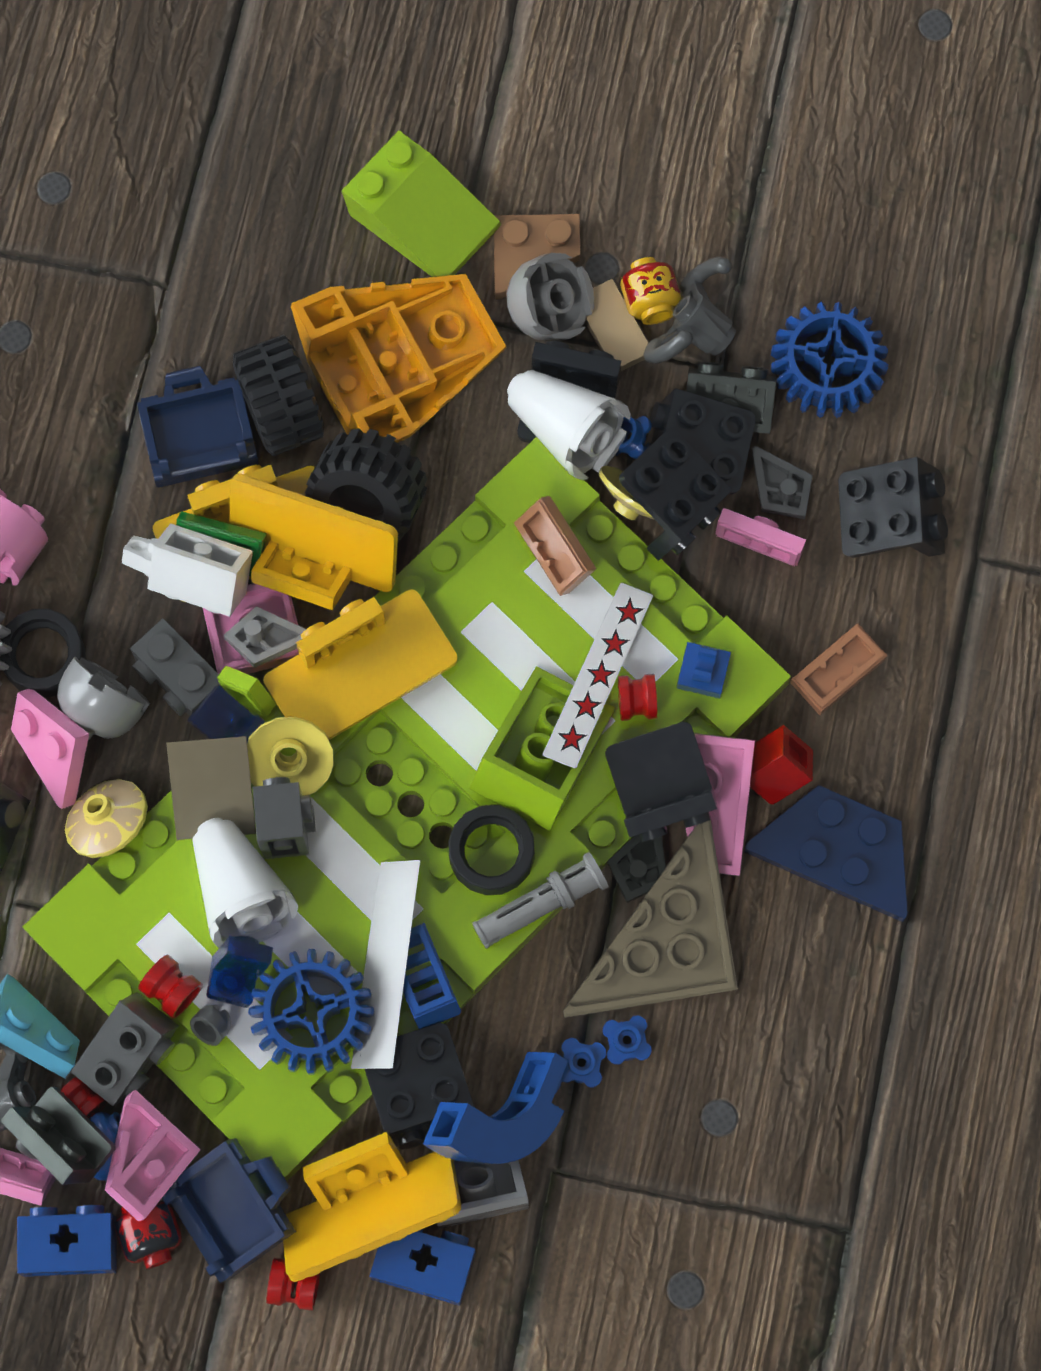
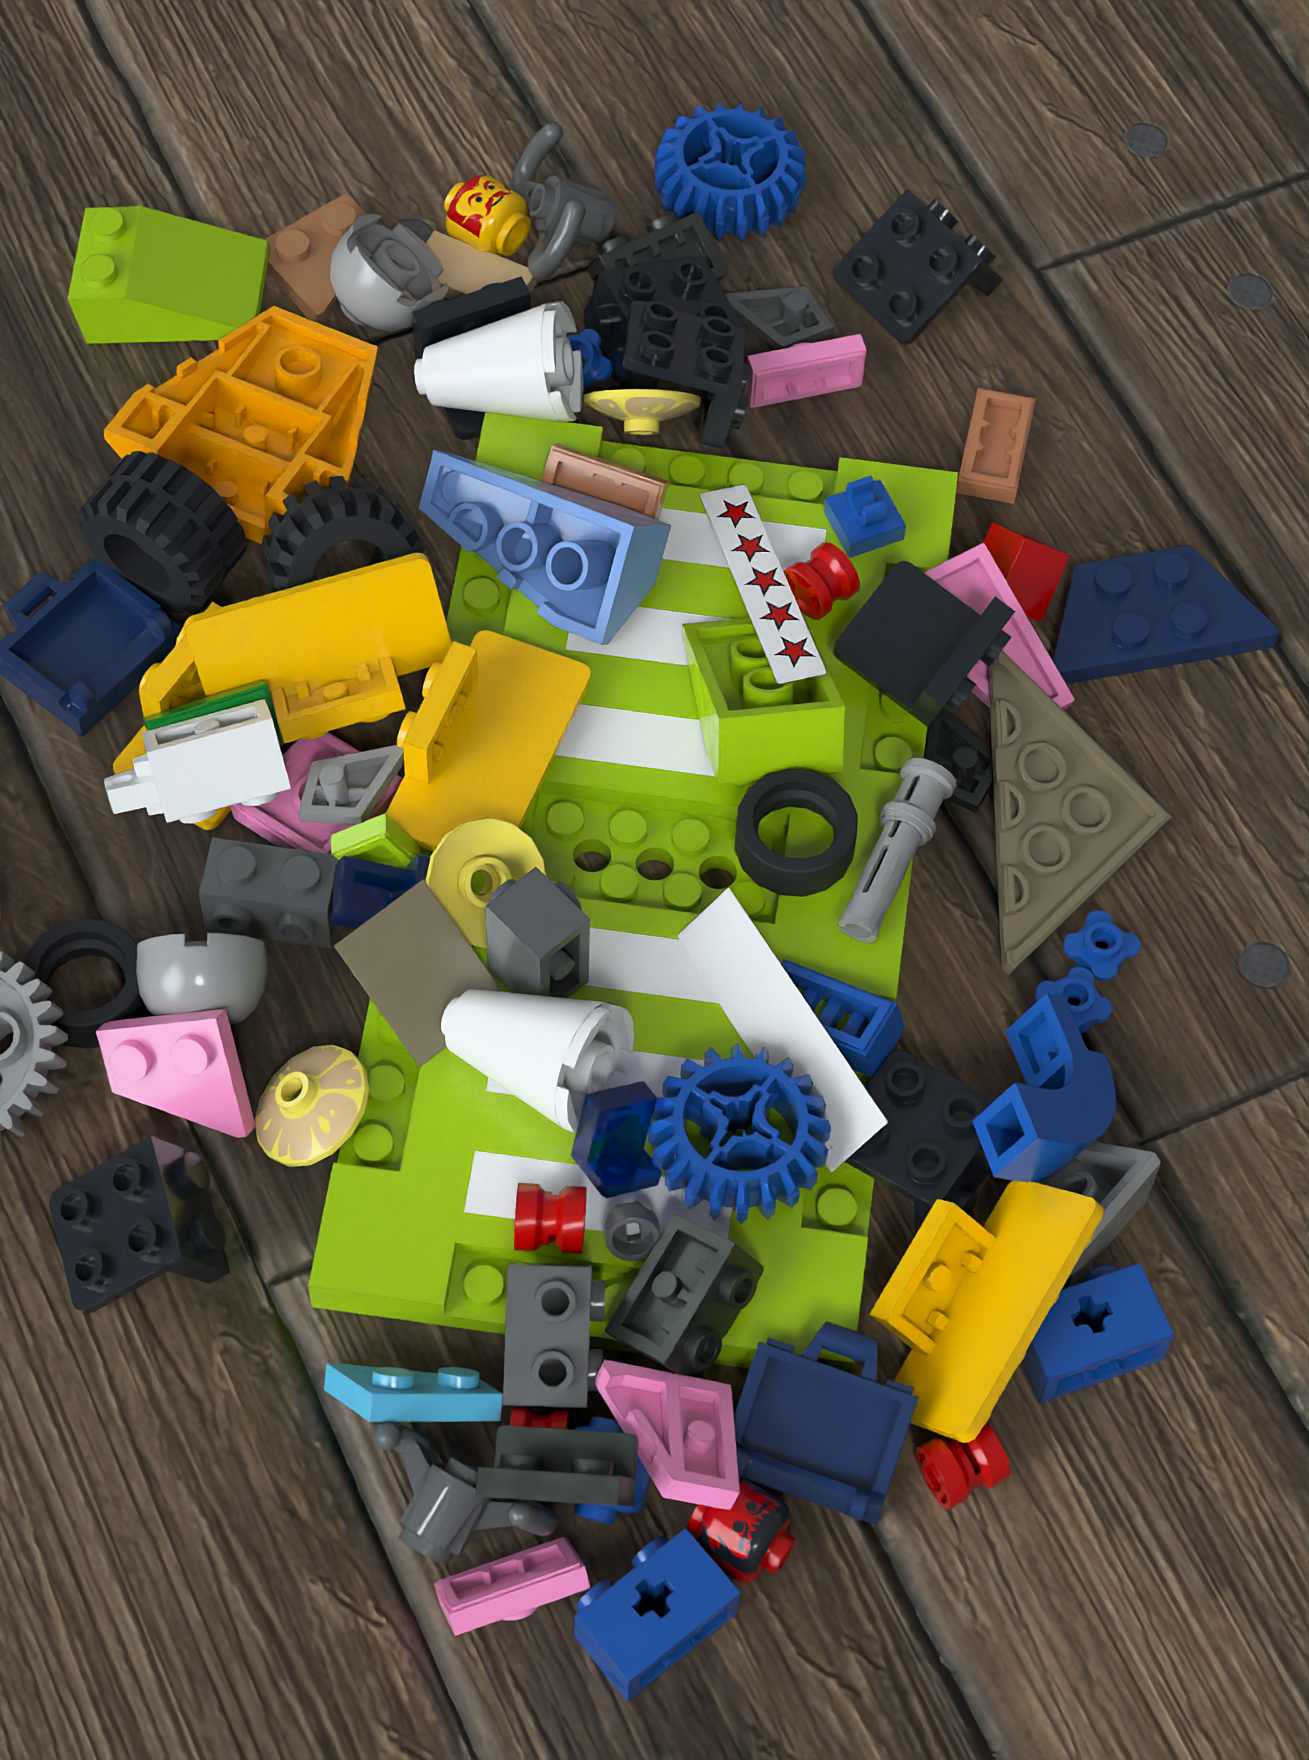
camera: 40 degrees left, 15 degrees down
(208, 1086) = (685, 1298): none -> pearl dark grey bracket
(504, 567) = (562, 549): none -> medium blue wedge

